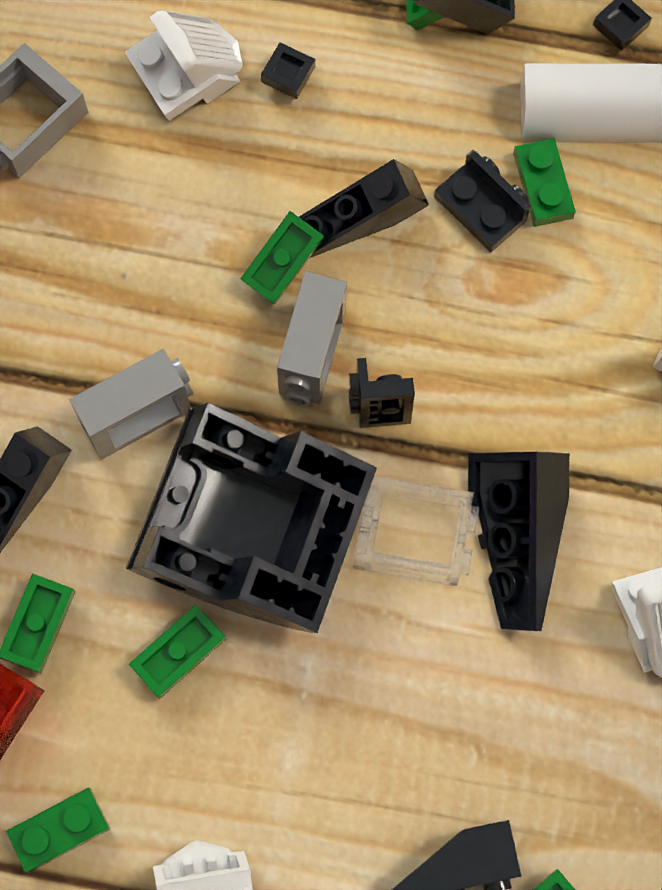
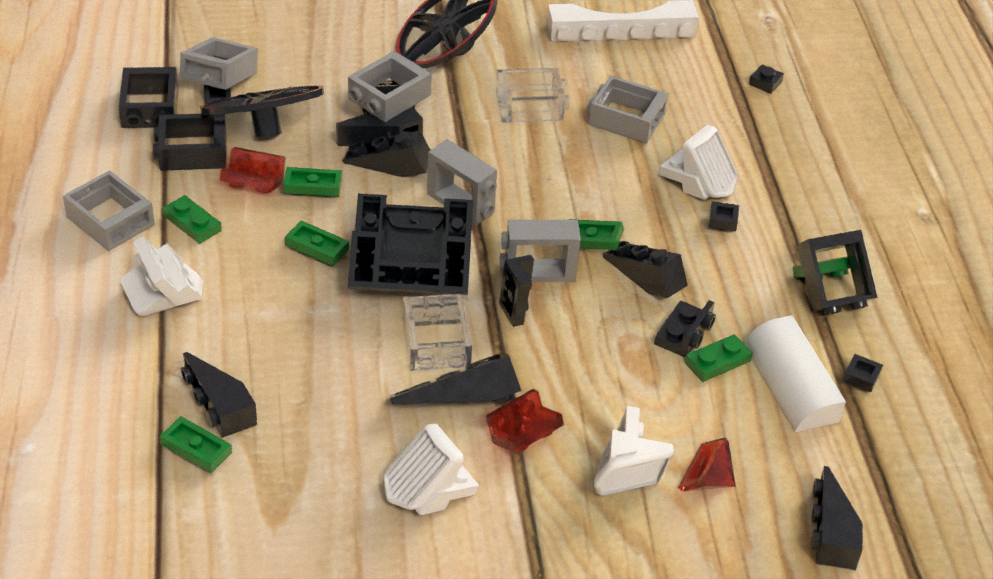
camera: 70 degrees right, 30 degrees down
(612, 467) = (522, 422): none -> clear red bracket

